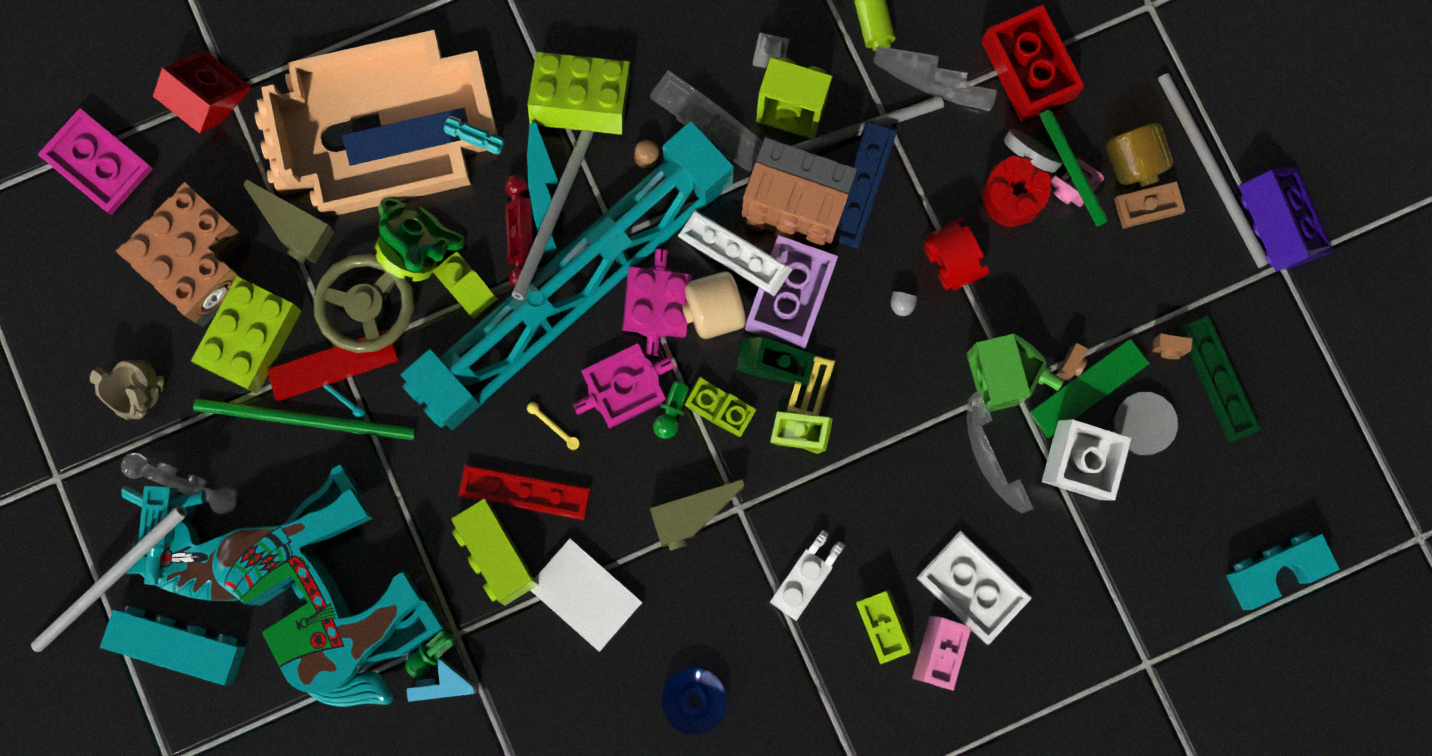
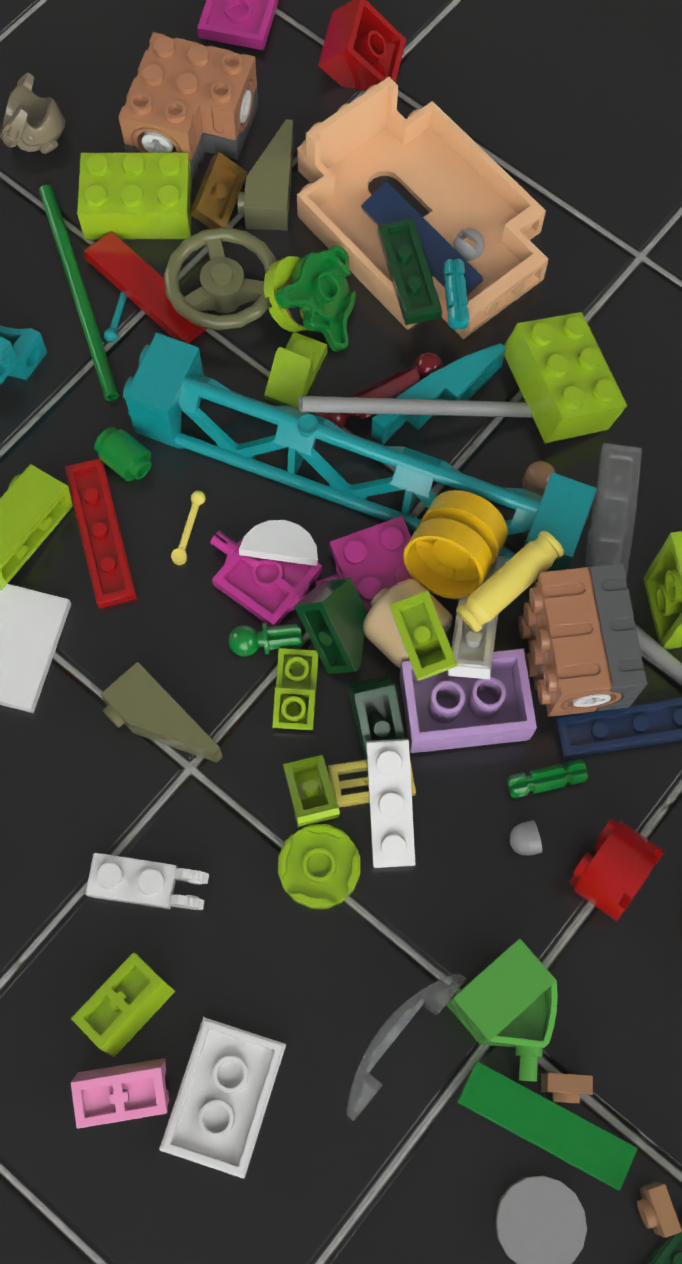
camera: 65 degrees right, 10 degrees down
(277, 269) = (218, 192): none -> pearl gold plate
(434, 108) = (464, 248): none -> light grey hinge
(435, 159) = (409, 271): none -> dark green tile
(472, 446) = (123, 454): none -> green brick
(607, 363) = (280, 542): none -> white tile
(680, 241) = (455, 544): none -> yellow wheel
(688, 355) = (335, 624): none -> dark green slope
(731, 218) = (510, 581): none -> light yellow axle
(744, 299) = (423, 635): none -> lime slope
(836, 381) = (390, 803): none -> white plate
(853, 452) = (319, 866): none -> lime tile
(868, 267) = (547, 778): none -> green axle
(1086, 460) = (451, 1163): white brick -> none

